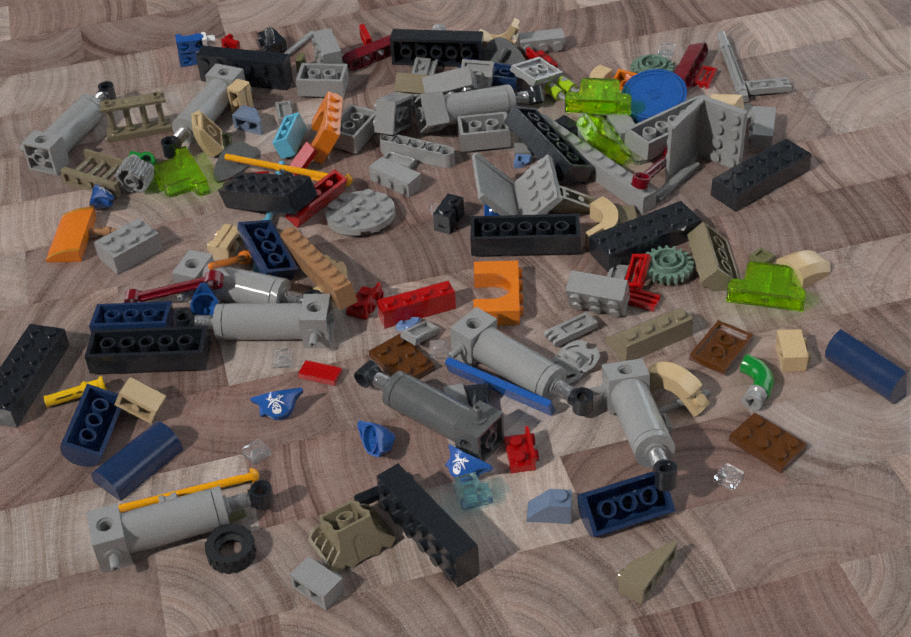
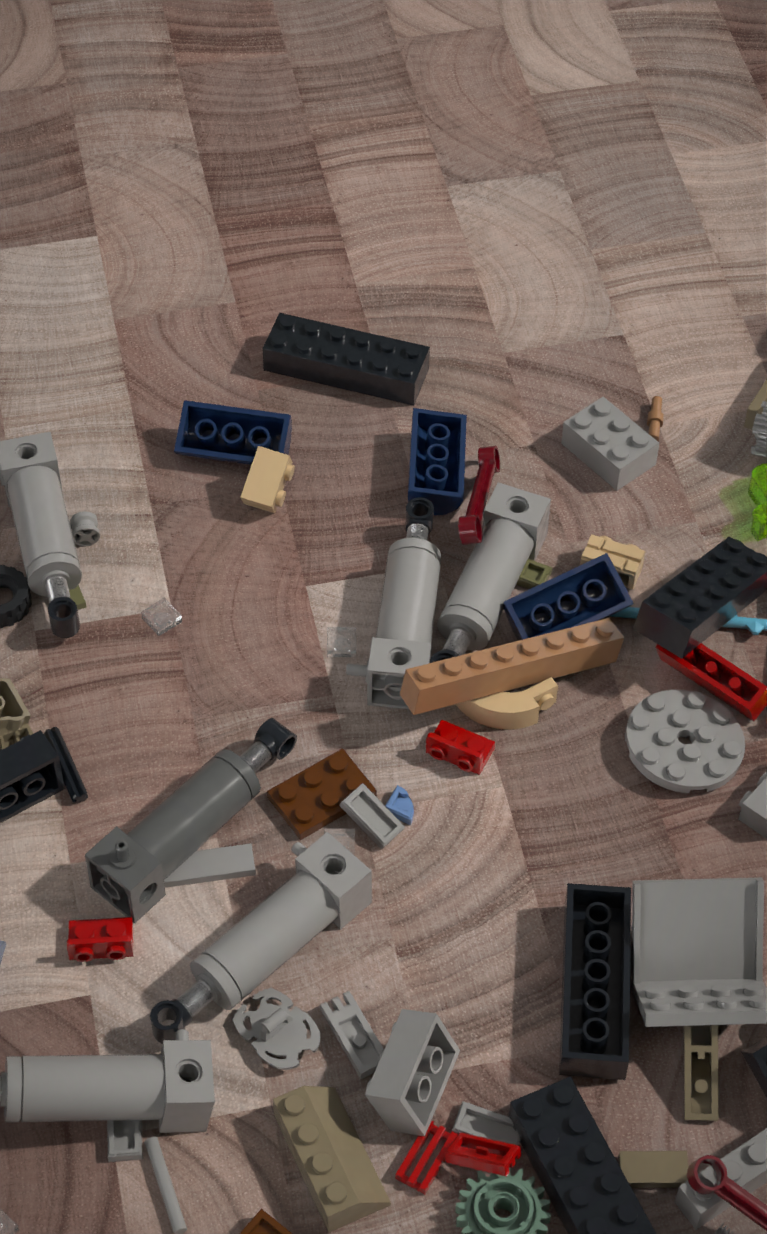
camera: 90 degrees right, 10 degrees up
(72, 235) = (643, 380): orange slope -> none
(72, 393) = (311, 425): yellow pin -> none
(101, 197) = (727, 398): blue hat -> none
(137, 460) = (169, 491): dark blue brick -> none
(148, 349) = (369, 483): black brick -> none
(203, 300) = (447, 536): blue hat -> none
(243, 258) = (517, 544): orange piece -> none
(252, 476) = (118, 613): light orange bar -> none
(277, 404) = (243, 634): blue hat -> none
(320, 373) = (309, 690): red tile -> none
(375, 438) = (152, 756): blue hat -> none
(417, 303) = (435, 812): red brick -> none
(447, 213) = (667, 860): black piece -> none
(463, 463) = (71, 864): blue hat -> none
(471, 492) = (29, 864): clear light blue brick -> none
(478, 392) = (219, 888): black piece -> none
(500, 386) = (256, 889): blue tile -> none
(505, 276) = (491, 952): orange arch -> none
(605, 214) = (637, 1130): tan arch -> none
(680, 382) = (184, 1161): tan arch -> none

